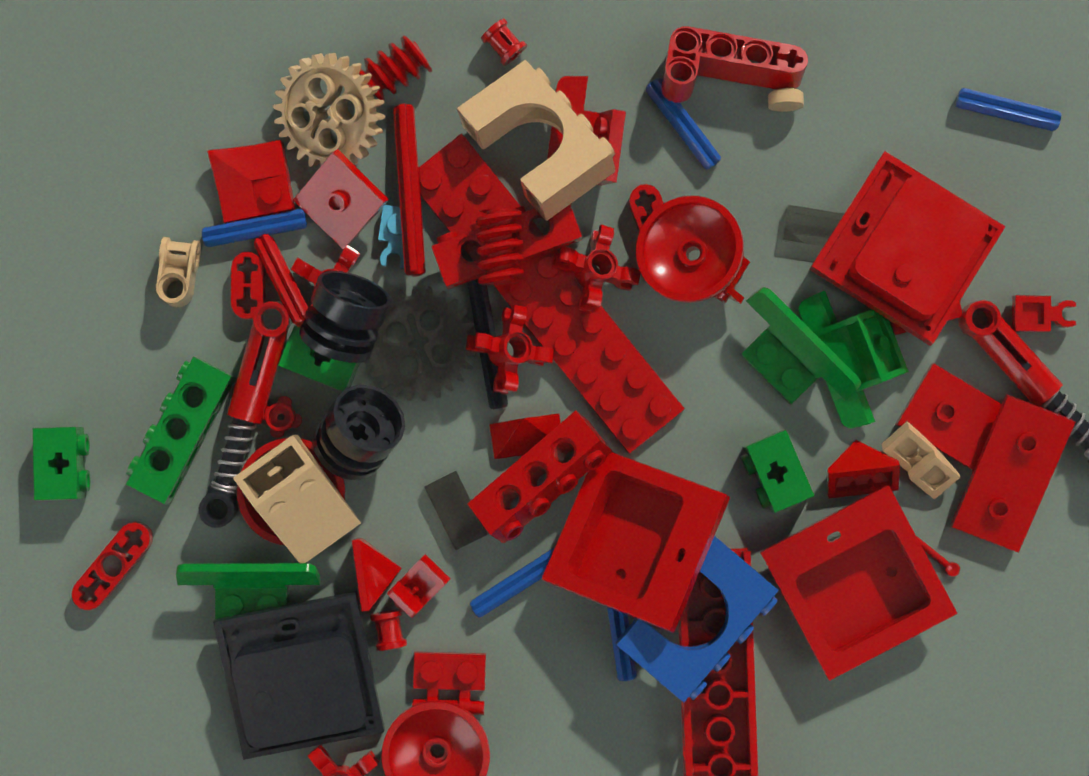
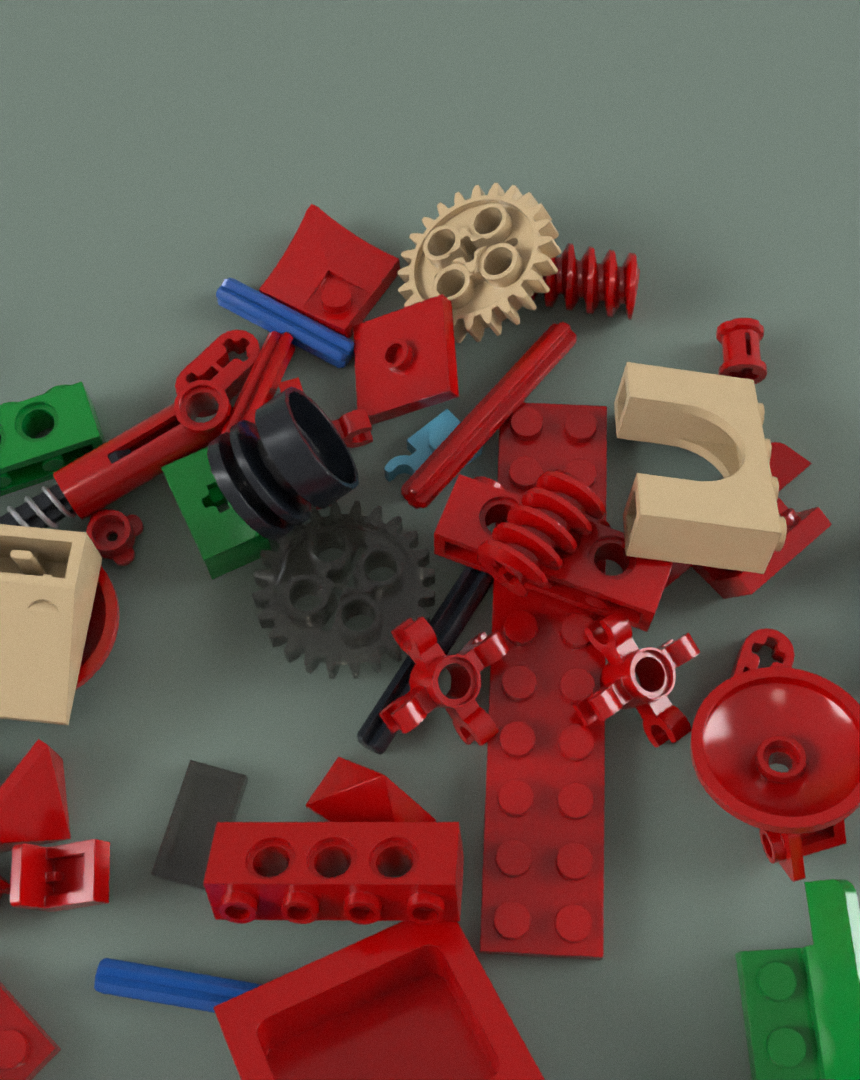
camera: 45 degrees right, 20 degrees down
(177, 268) = (166, 294): tan piece -> none
(358, 432) = (172, 614): black wheel -> none

